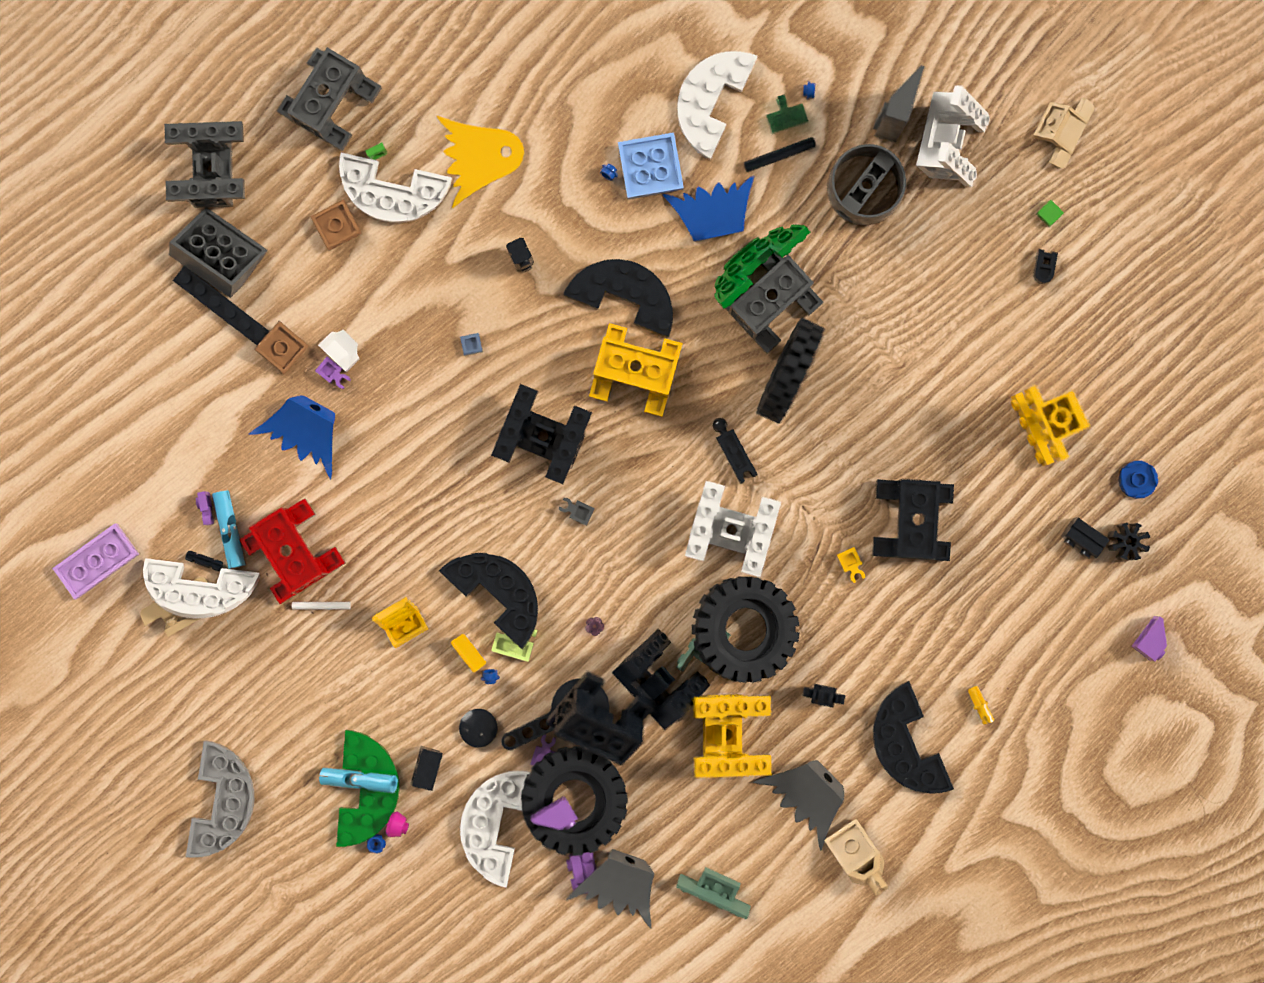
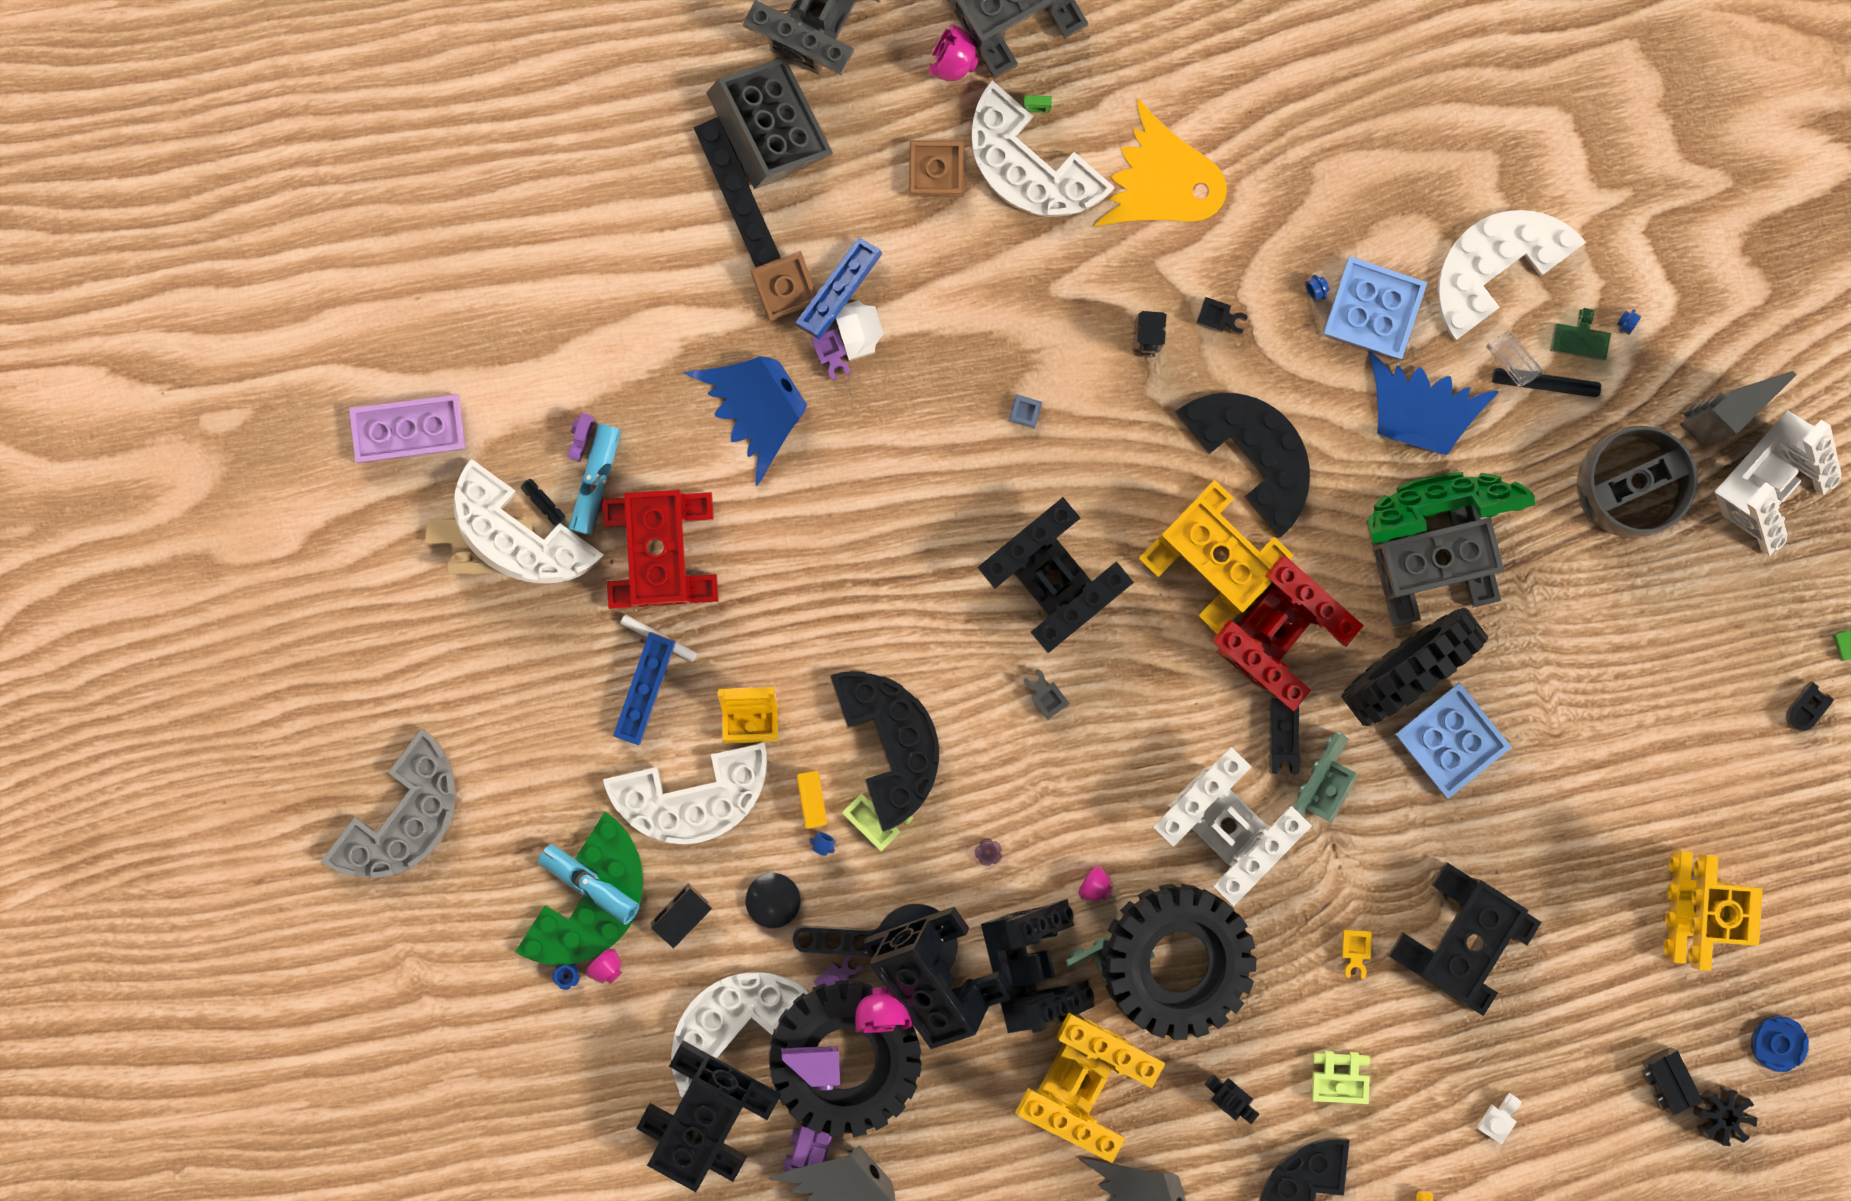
camera: 25 degrees right, 0 degrees up
(309, 149) = (954, 55): none -> dark pink cylinder
(315, 330) = (839, 288): none -> plate
(328, 641) = (644, 688): none -> blue plate
(402, 699) = (694, 812): none -> white plate
(504, 885) = (696, 1132): none -> black piece
(556, 222) = (1216, 315): none -> black plate
(579, 761) = (881, 1013): none -> dark pink cylinder
(670, 610) = (1095, 885): none -> dark pink cone
(698, 374) = (1276, 624): none -> red piece
(752, 150) = (1514, 358): none -> clear tile
(778, 470) = (1328, 783): none -> sand green bracket
(840, 403) = (1452, 740): none -> light blue plate
(887, 651) = (1340, 1086): none -> yellowish green plate
(993, 620) = (1498, 1122): none -> white plate

